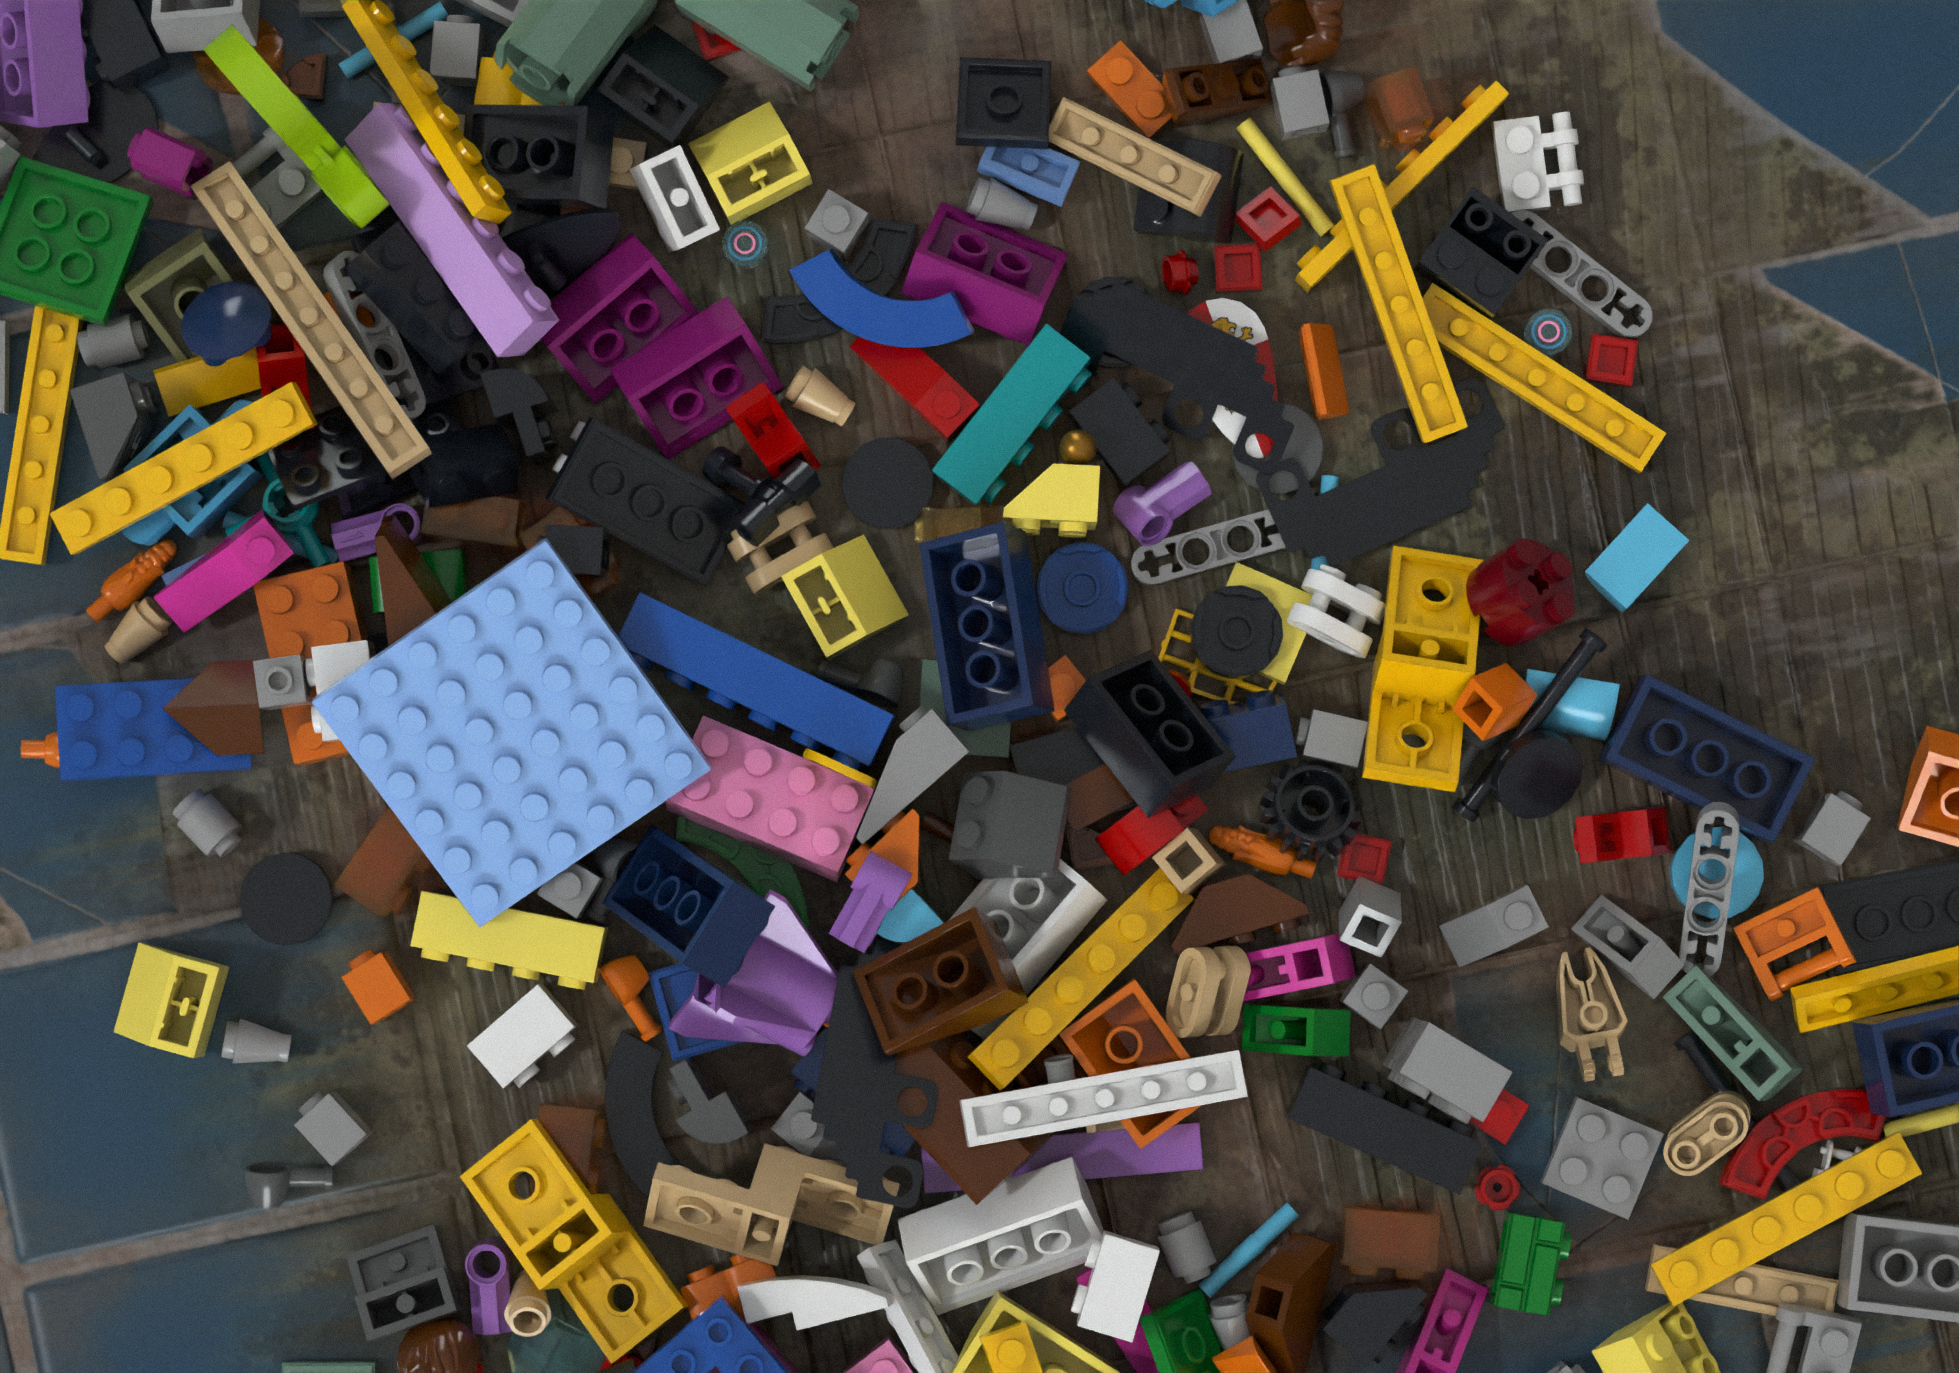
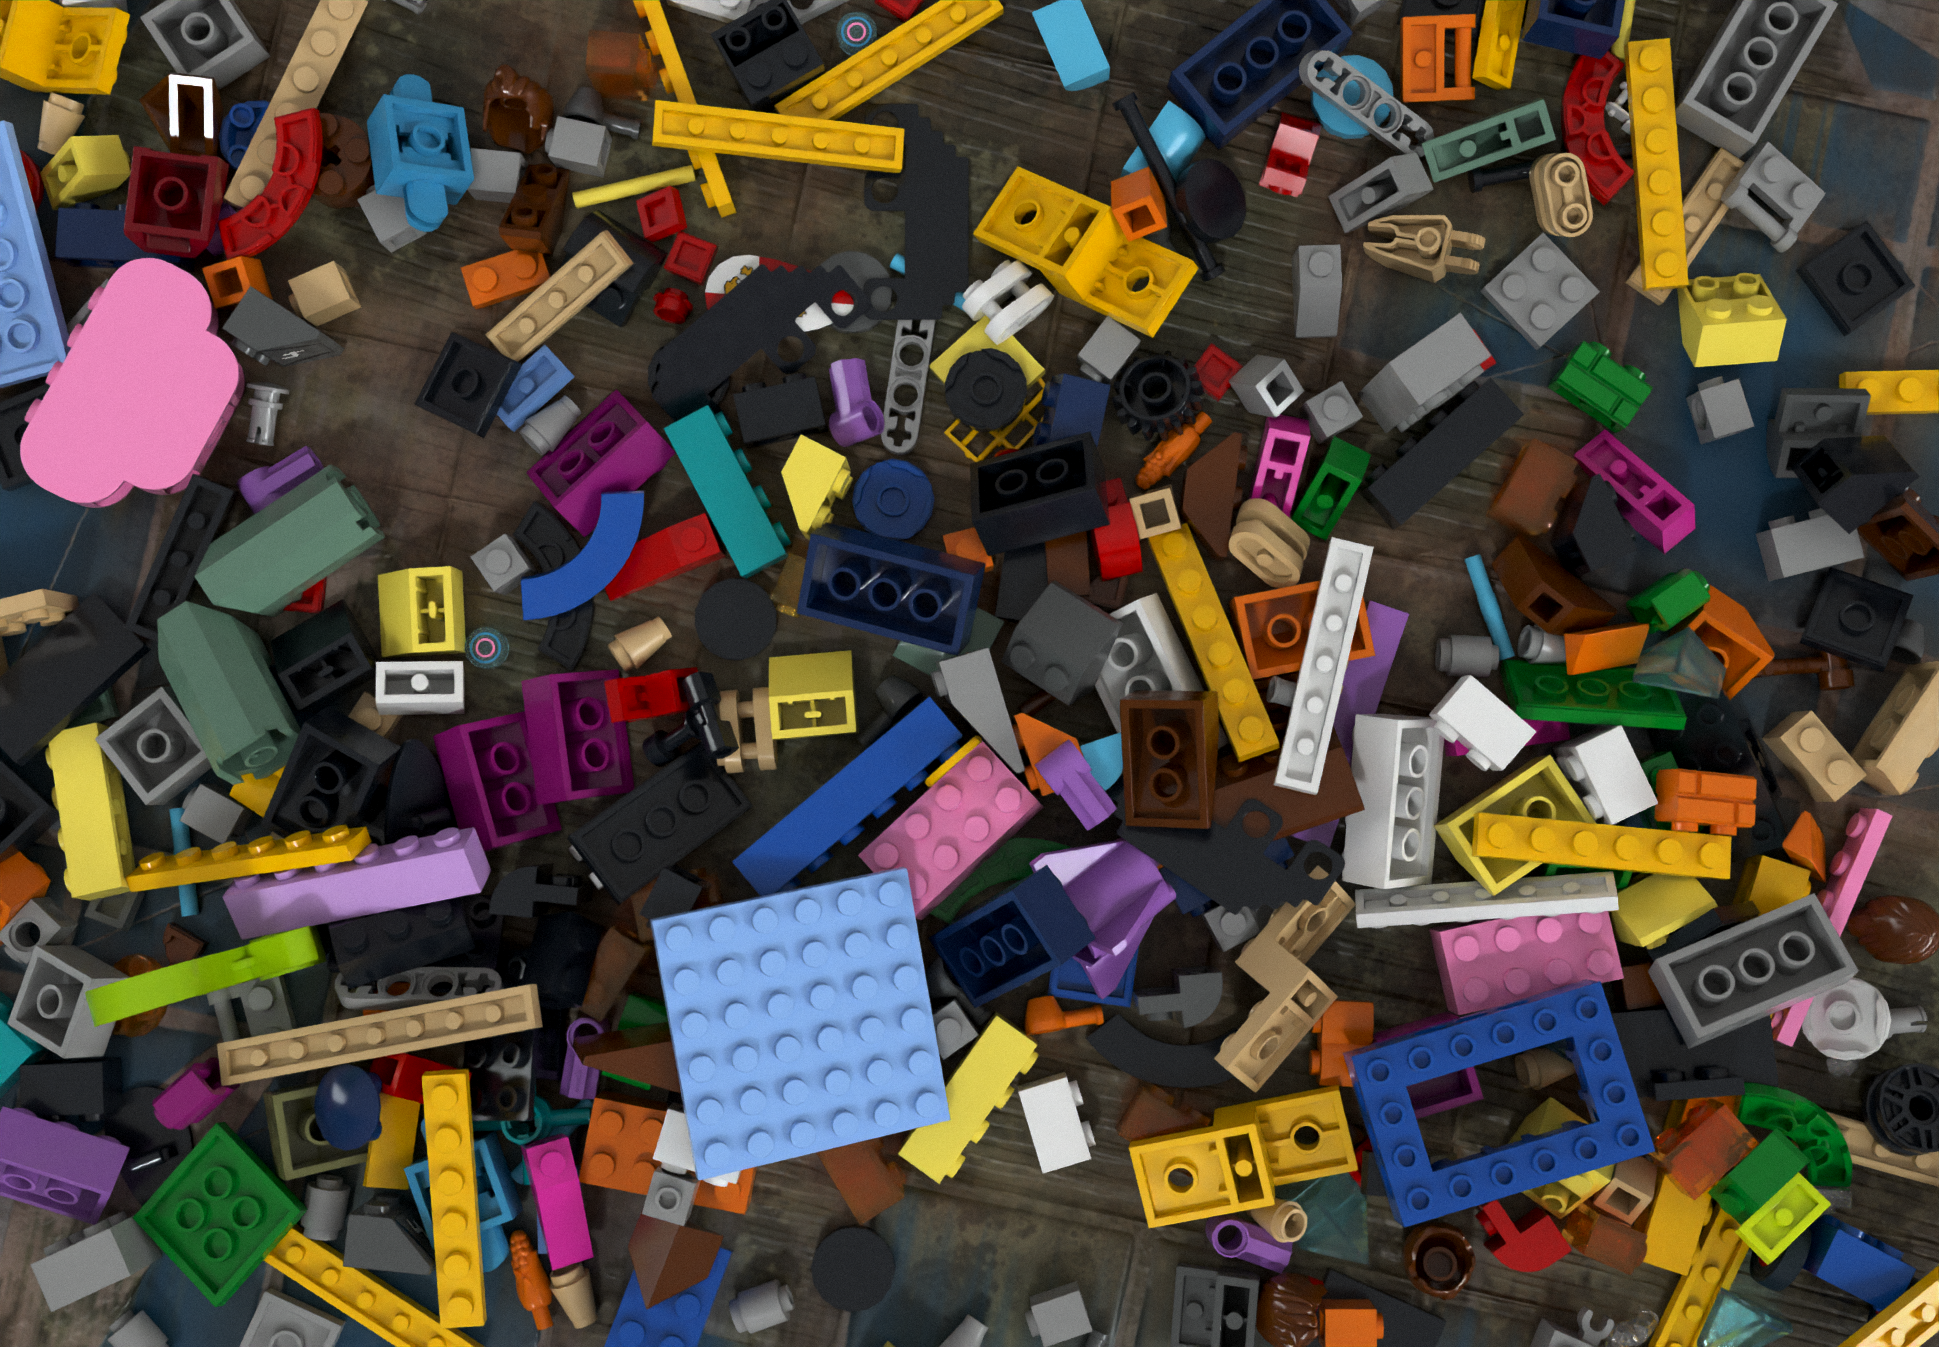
camera: 70 degrees left, 0 degrees up
(377, 985) = (959, 1224): orange brick -> none
(809, 1298) = (1380, 981): white slope -> none
(1078, 447) = (777, 447): pearl gold bar -> none
(1323, 370) = (805, 227): orange slope -> none
(1509, 1190) = (1537, 381): red plate -> none
(1521, 592) = (1058, 143): dark red brick -> none

